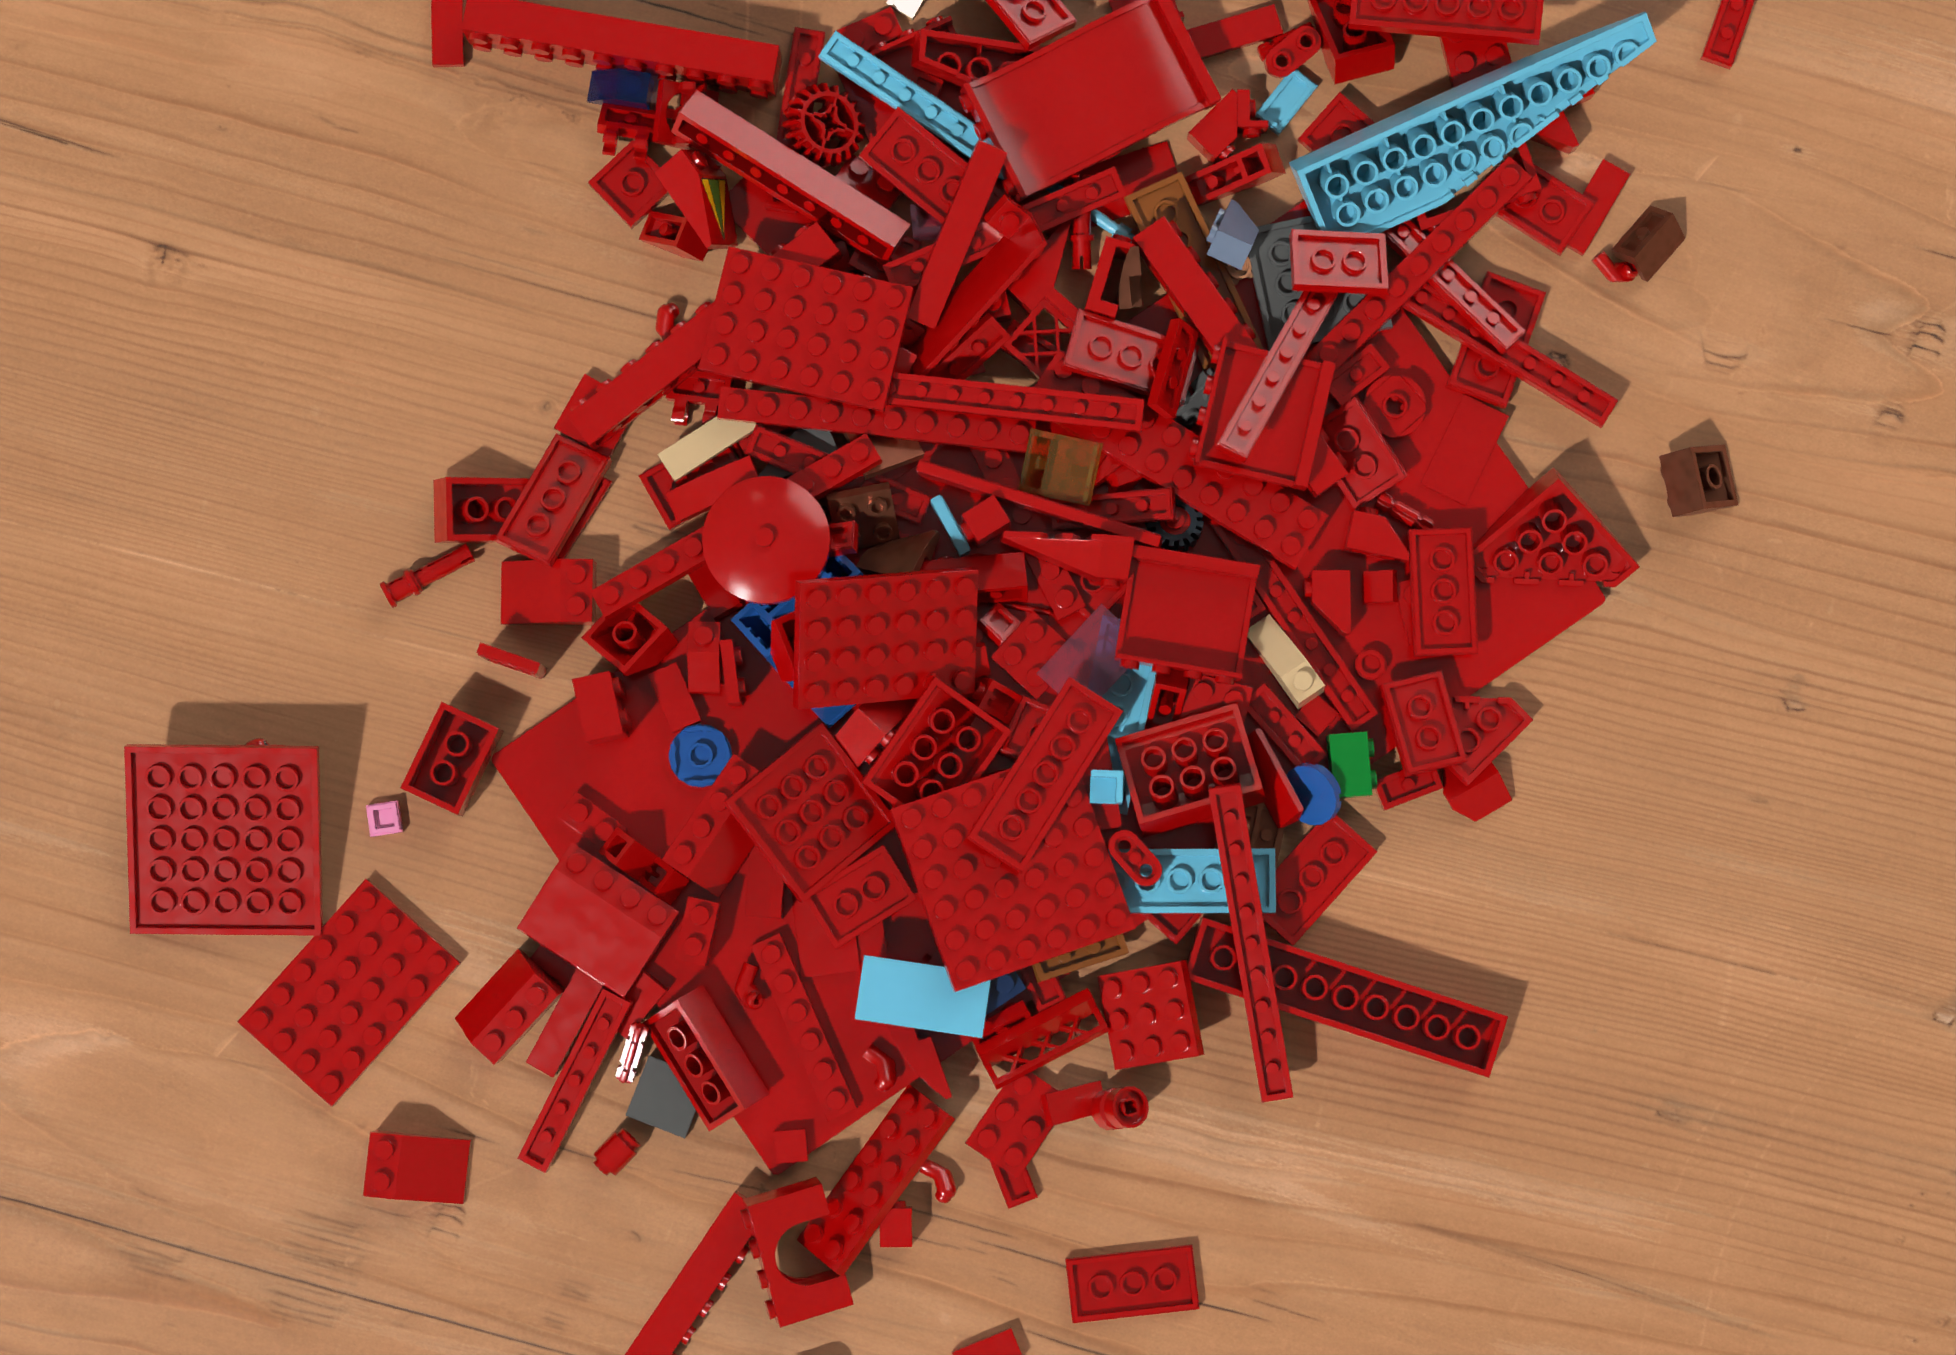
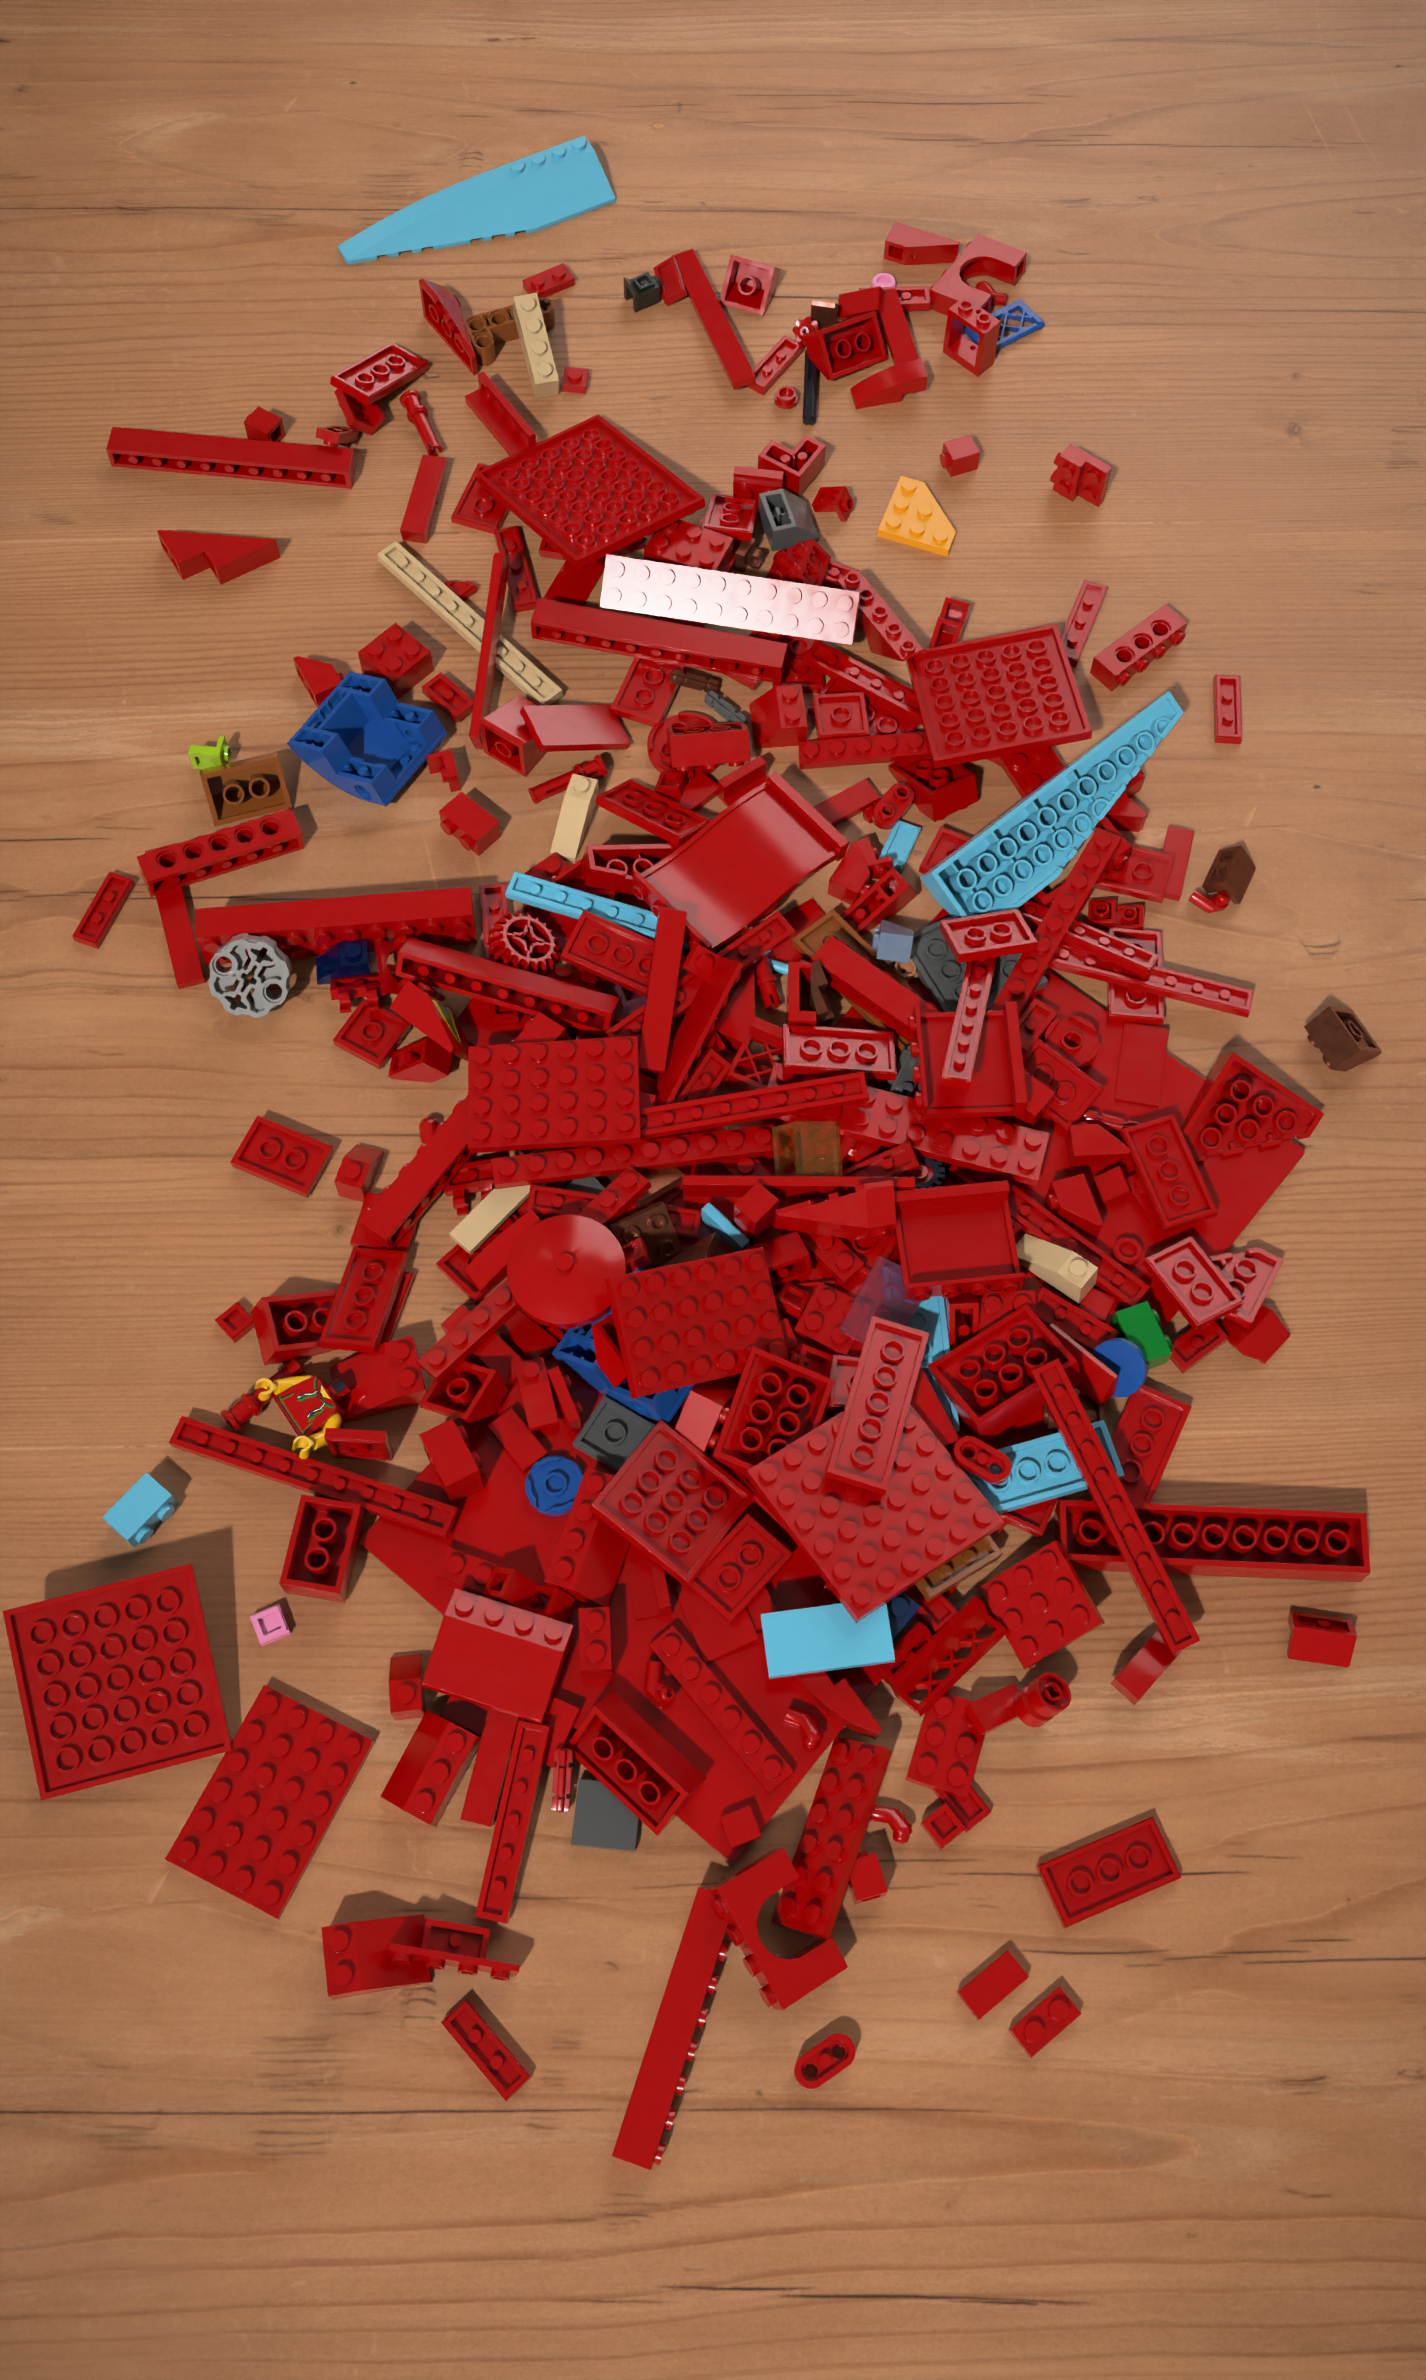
camera: 15 degrees left, 20 degrees down
(279, 667) = (140, 1510): none -> medium azure brick
(415, 484) = (235, 1322): none -> red tile
(458, 679) = (314, 1477): none -> red plate
(470, 605) = (308, 1407): none -> torso
(492, 1180) = (453, 1946): none -> red bracket
(499, 1279) = (486, 2050): none -> red tile
(503, 307) = (282, 1156): none -> red plate
(503, 918) = (406, 1688): none -> red slope
(512, 108) = (224, 976): none -> light grey connector
(581, 346) = (358, 1172): none -> red slope
(616, 1152) = (571, 1883): red brick -> none
(673, 599) = (492, 1353): none -> red slope
(772, 720) = (612, 1433): none -> dark grey tile
(986, 1198) = (943, 1826): none -> red plate
(1106, 787) = (935, 1403): medium azure panel -> none
(1172, 368) = (878, 1046): red plate -> none
(1231, 1105) = (1144, 1668): none -> red slope
(1421, 1121) = (1321, 1639): none -> red panel
(1502, 259) = (1108, 914): none -> red slope

